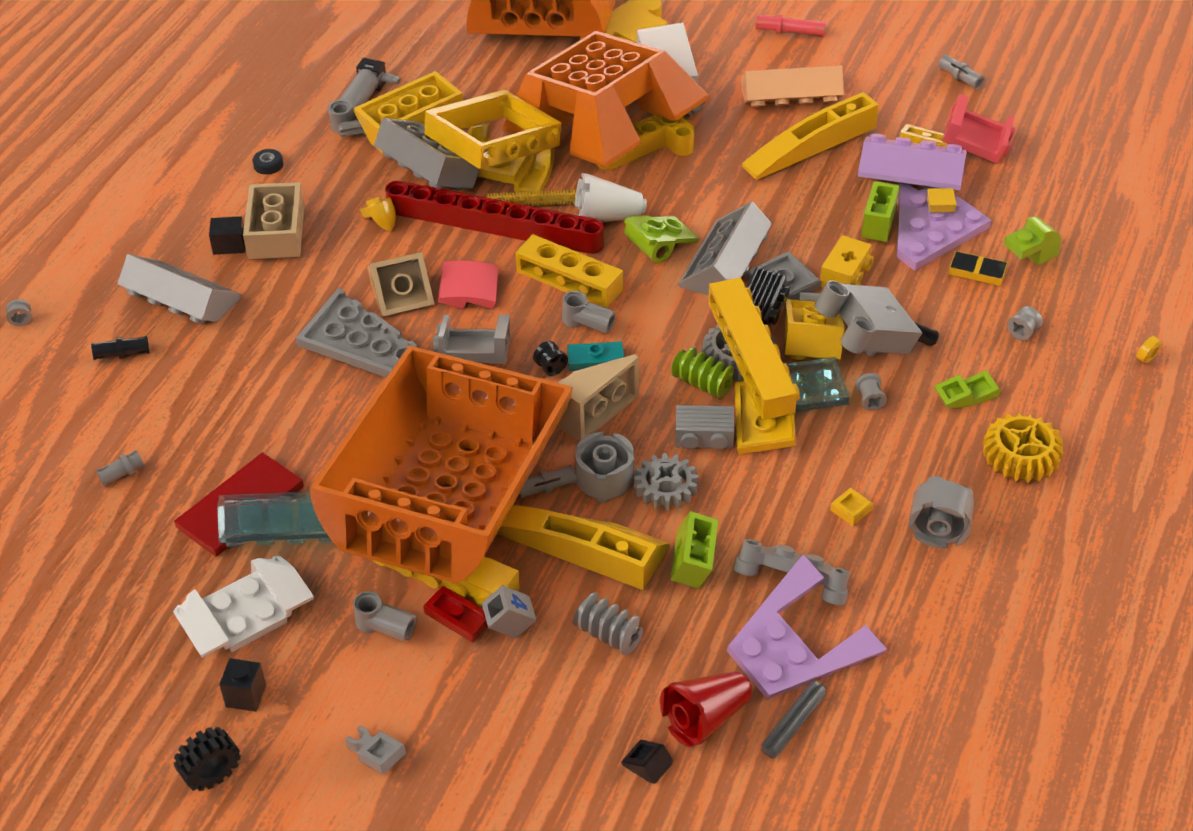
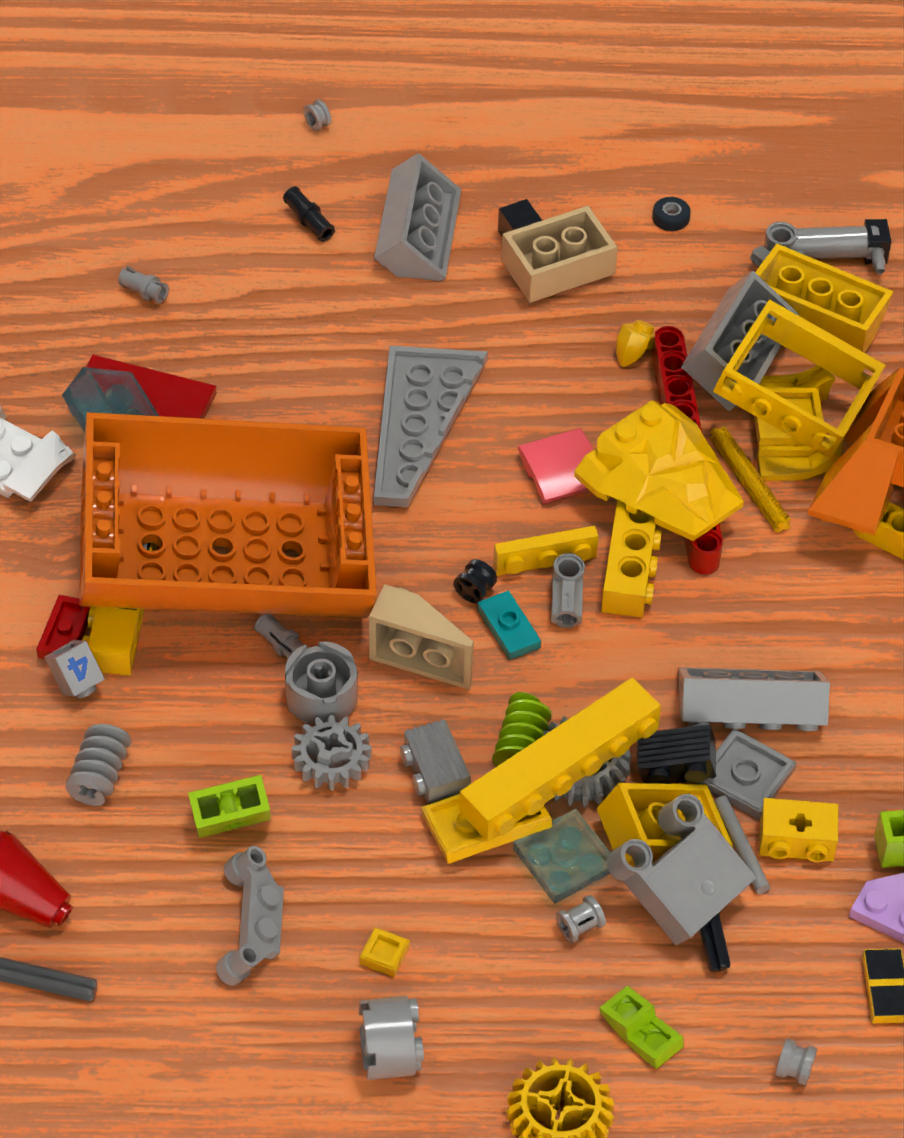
camera: 65 degrees right, 5 degrees up
(378, 616) = (32, 568): light grey piece -> none
(400, 284) = (524, 402): tan slope -> none
(474, 344) = (460, 500): light grey panel -> none
(525, 225) = (661, 467): none -> yellow wedge
(545, 312) = (542, 550): none -> yellow plate
(587, 543) = (211, 707): yellow wedge -> none
(607, 200) = (766, 541): white cone -> none
(656, 232) = (749, 614): lime piece -> none
(776, 655) = (120, 929): lavender wing -> none

